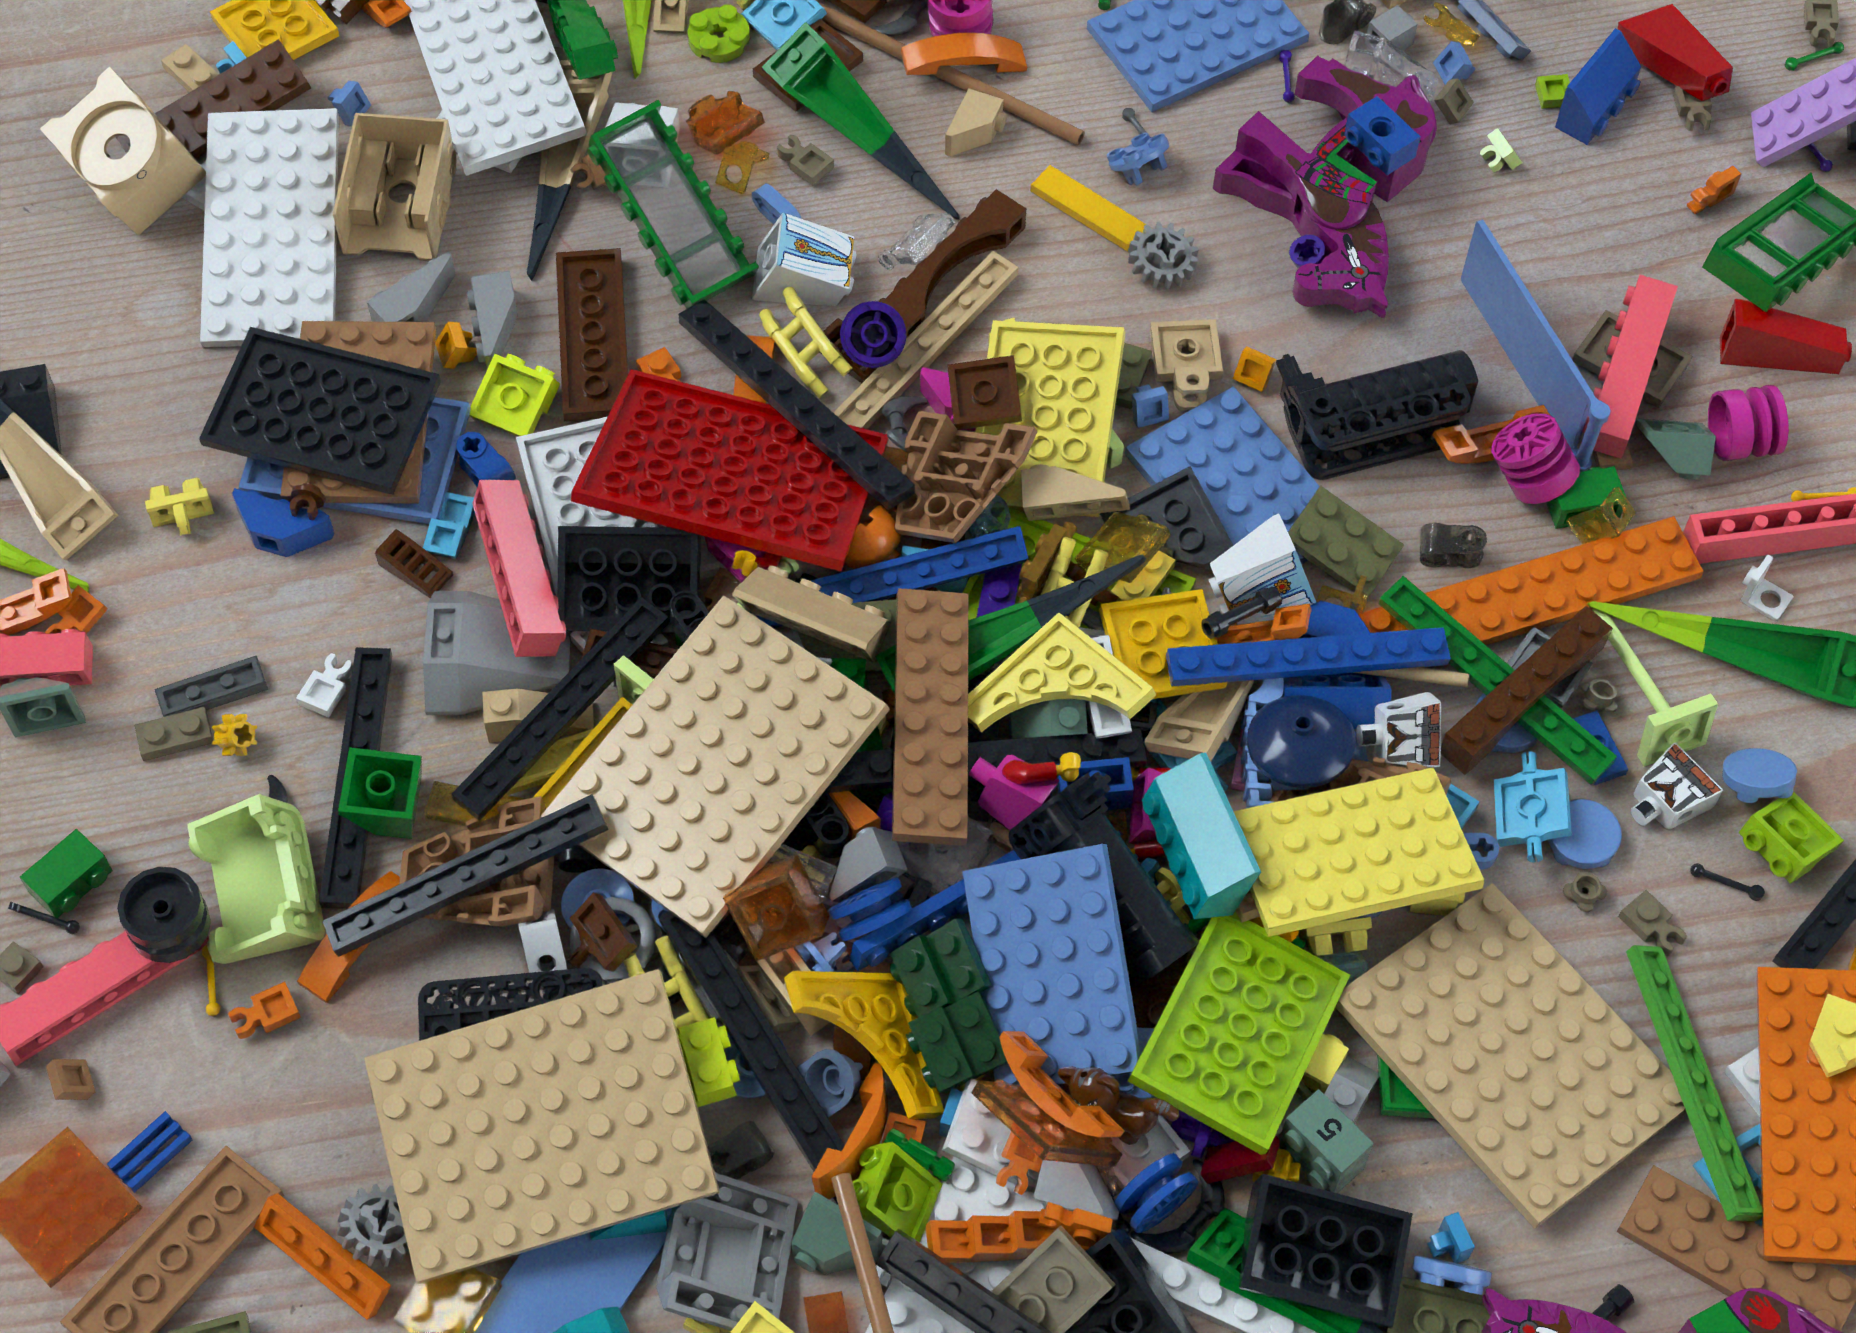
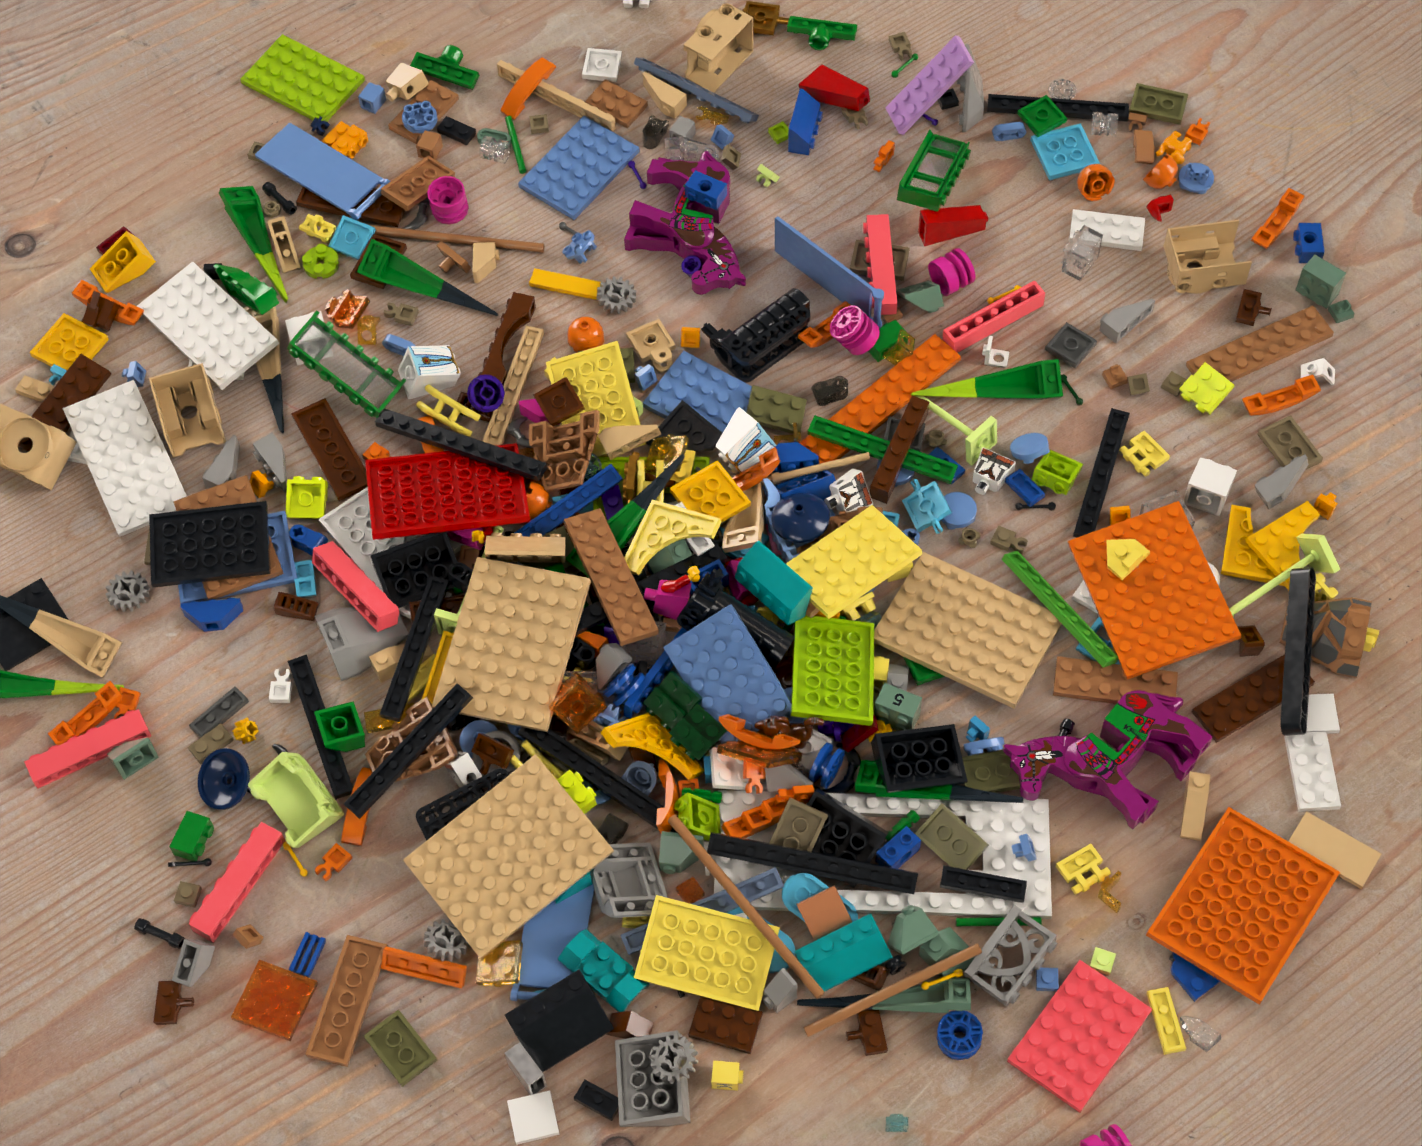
camera: 20 degrees left, 0 degrees up
(151, 437) = (120, 597): none -> light grey gear
(159, 800) = (223, 779): none -> dark blue dish
(164, 914) = (260, 832): black wheel -> none
(170, 508) = (153, 626): light yellow hips -> none
(307, 496) = (224, 592): reddish brown plate -> none
(594, 173) = (291, 363): medium nougat tile -> none
(914, 244) = (484, 334): clear plate -> none
(924, 102) = (451, 259): none -> medium nougat tile
(963, 49) = (459, 223): orange slope -> none
(1083, 299) = (585, 334): none -> orange cylinder
(1265, 601) = (752, 454): black bar -> none
(1307, 656) = (784, 474): blue plate -> none
(1721, 841) = (1024, 487): none -> blue plate

